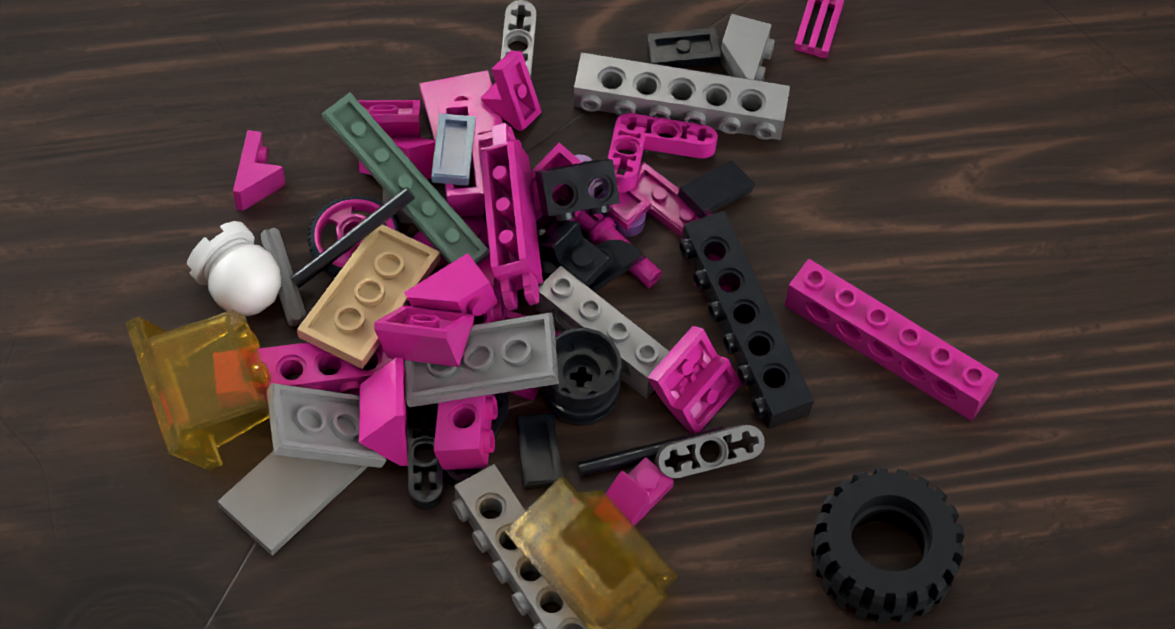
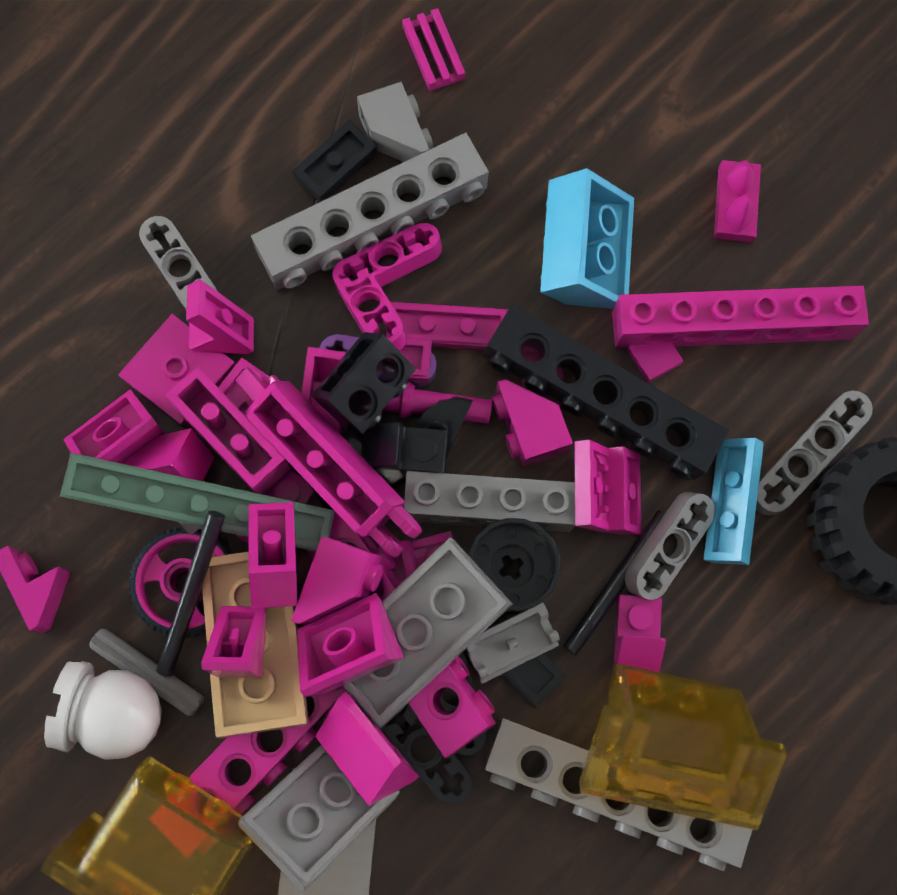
camera: 40 degrees left, 15 degrees up
(355, 281) = (236, 643): none -> dark pink slope
(424, 243) = (272, 555): none -> dark pink slope
(453, 149) = (221, 435): tile -> none
(540, 424) = (512, 643): none -> light grey hinge
(677, 305) = (533, 424): none -> dark pink slope
(715, 189) = (474, 282): black tile -> none
(781, 455) = (734, 501): none -> medium azure plate
(807, 330) = (655, 359): none -> dark pink tile
(822, 216) = (587, 241): none -> medium azure slope
(868, 461) = (814, 455): none -> light grey beam
(962, 269) = (737, 201): none -> dark pink tile

